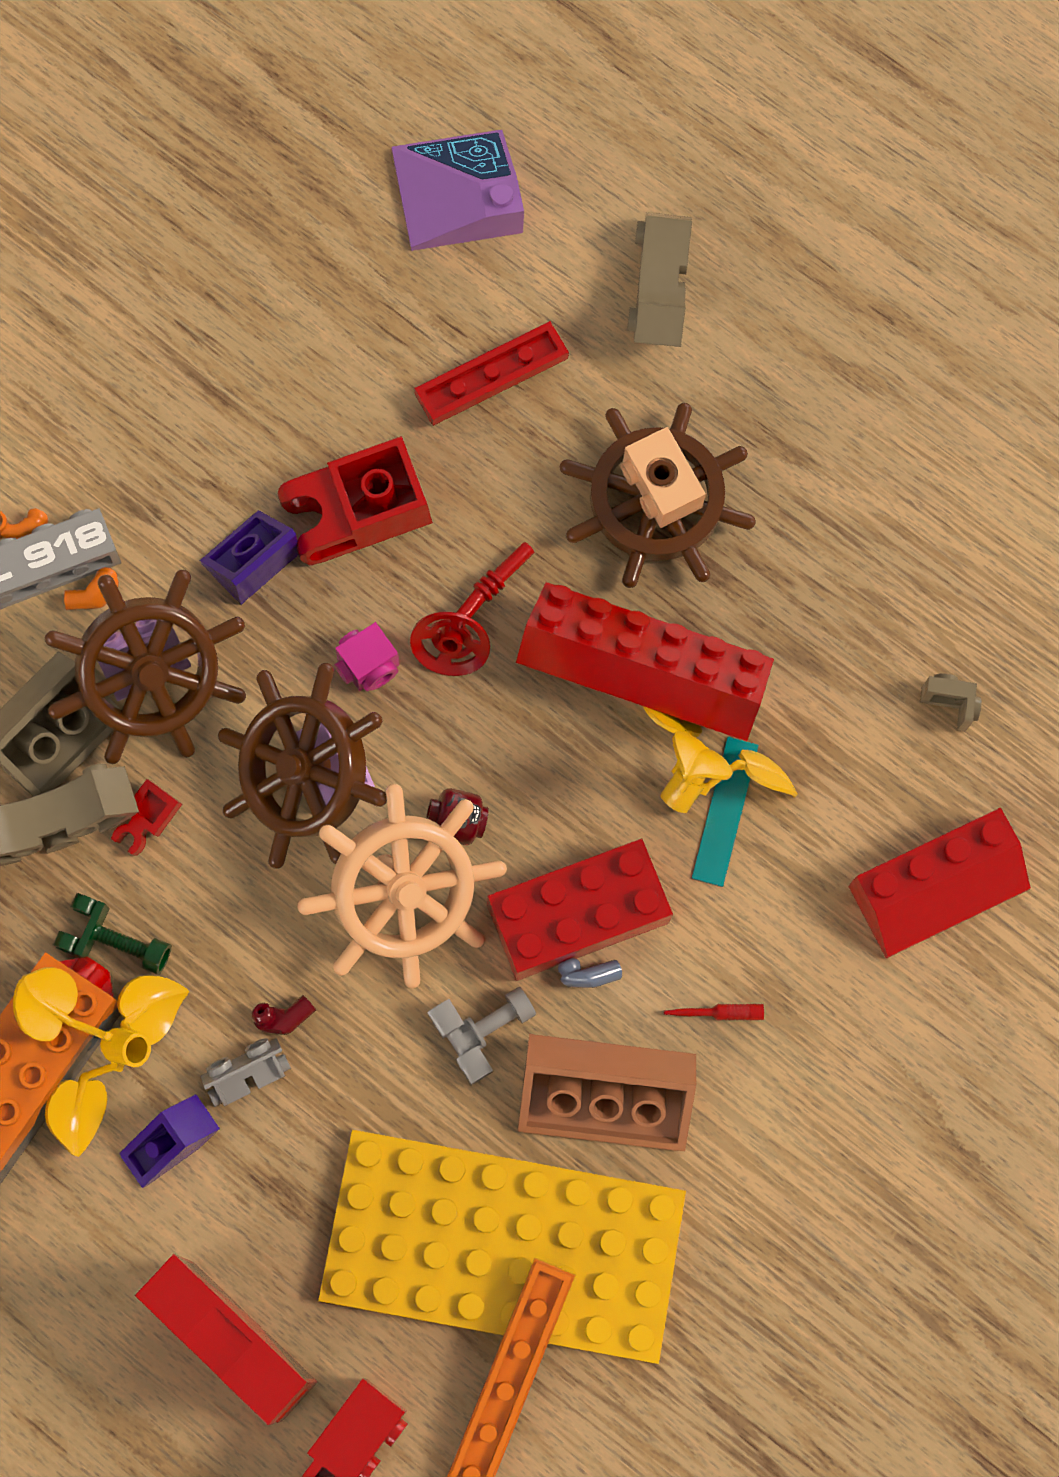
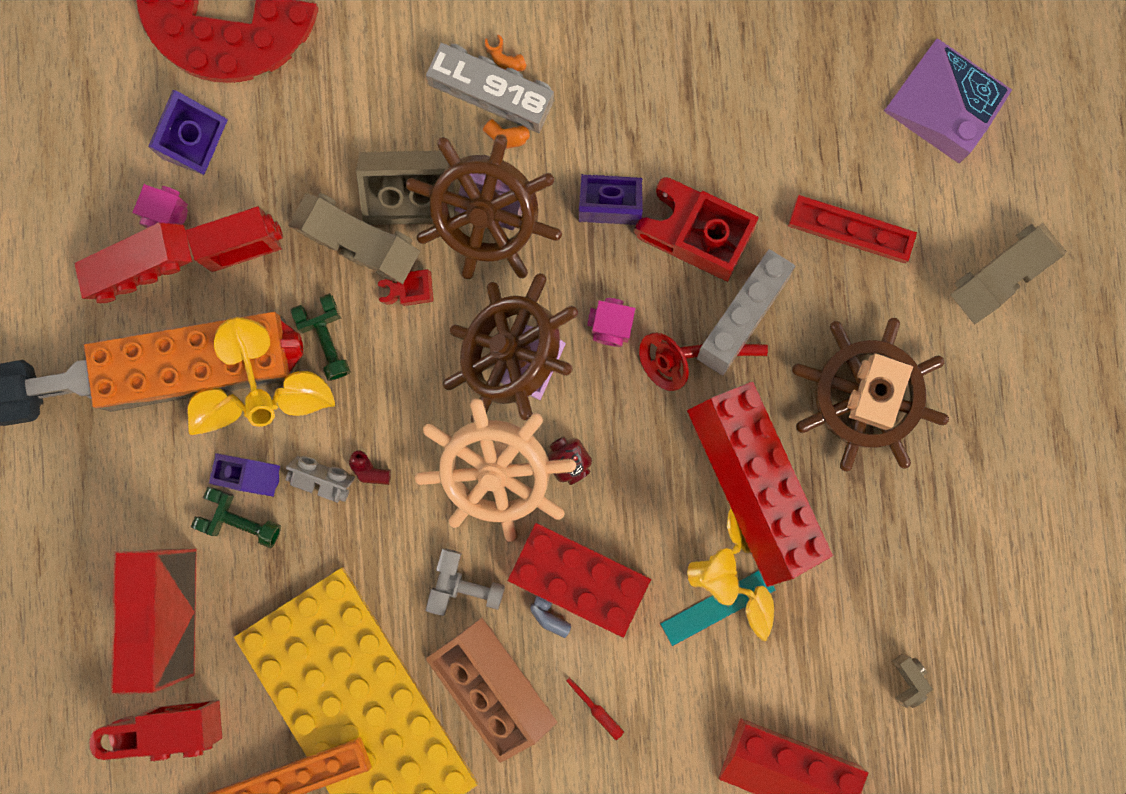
camera: 55 degrees right, 10 degrees up
(247, 1173) = (266, 533): none -> dark green bar
(476, 530) = (745, 312): none -> light grey brick

